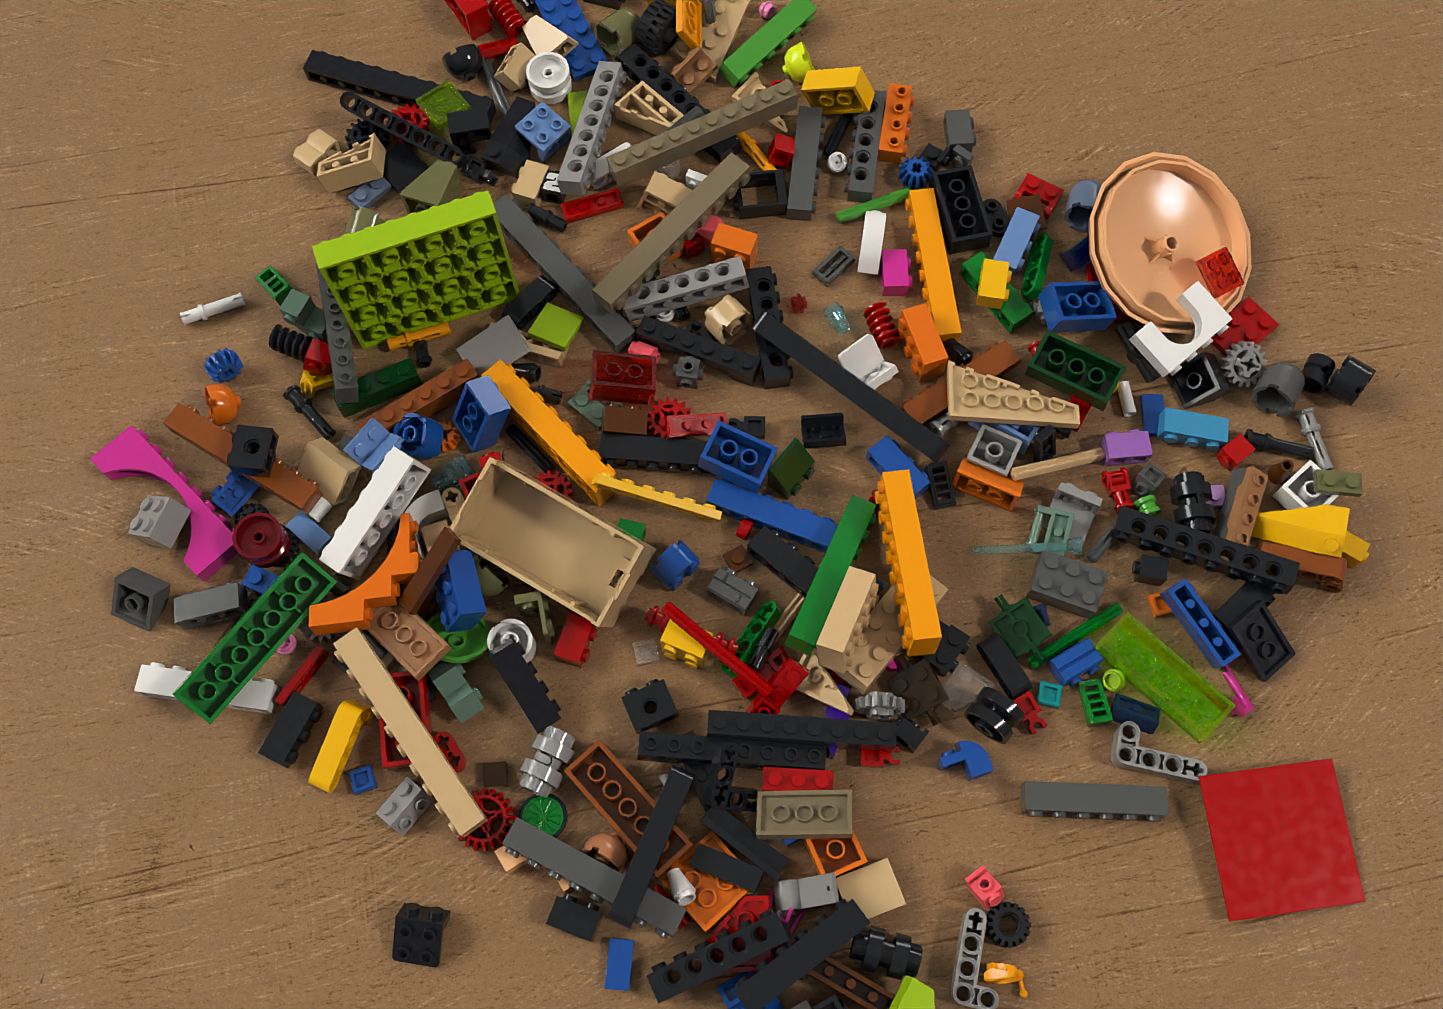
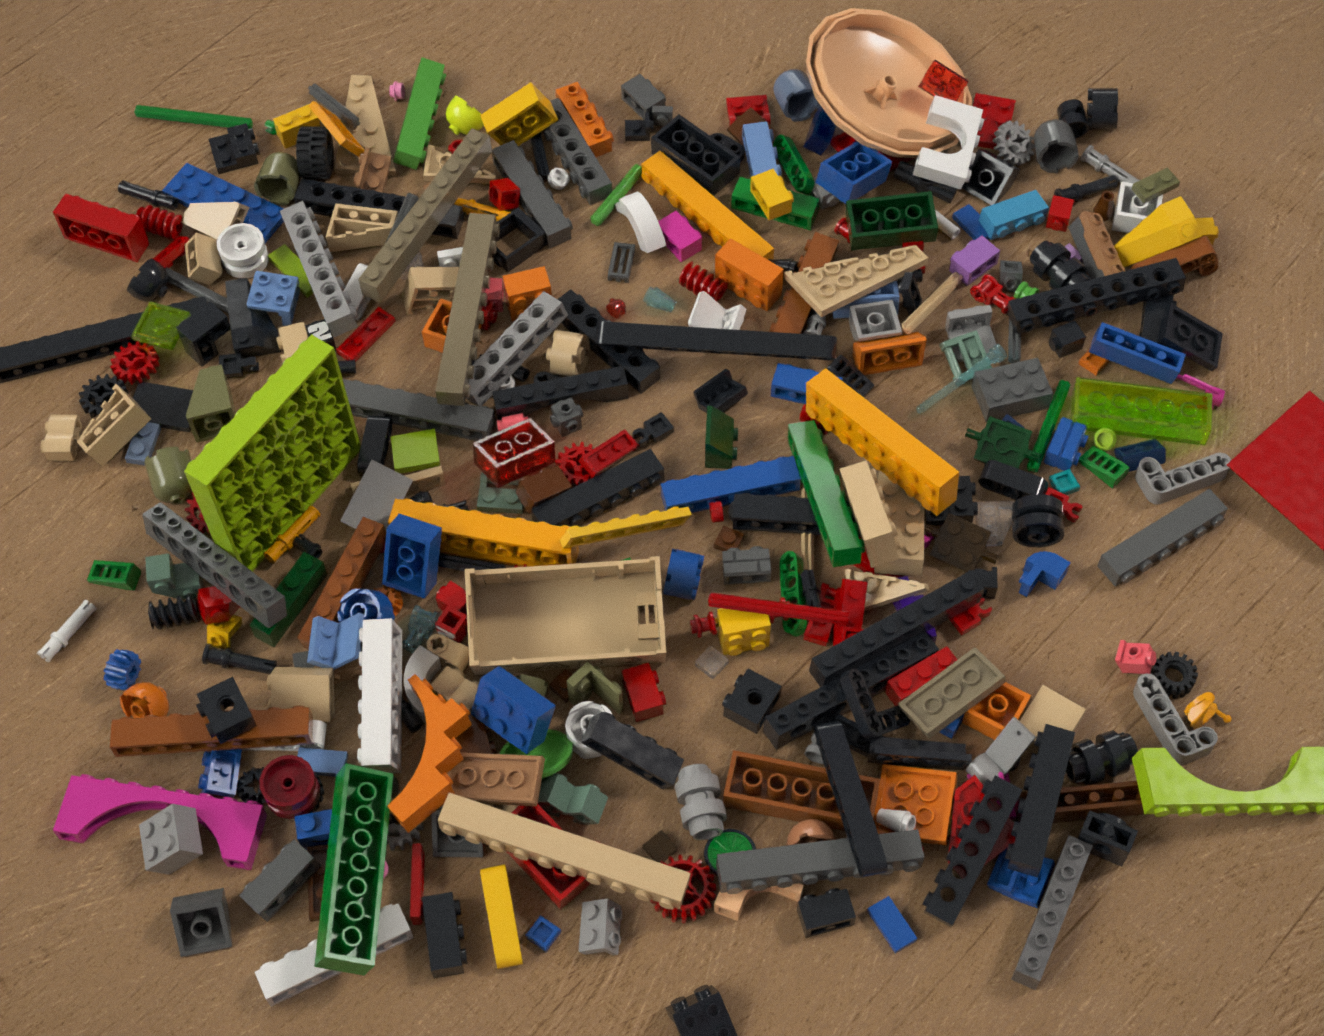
camera: 35 degrees left, 10 degrees down
(394, 127) = (130, 362): black beam -> none
(429, 570) = (478, 703): reddish brown tile -> none
(727, 868) = (922, 780): black tile -> none
(737, 456) = (670, 451): blue brick -> none
(880, 705) = (943, 571): light grey gear -> none
(915, 173) = (633, 149): blue gear -> none

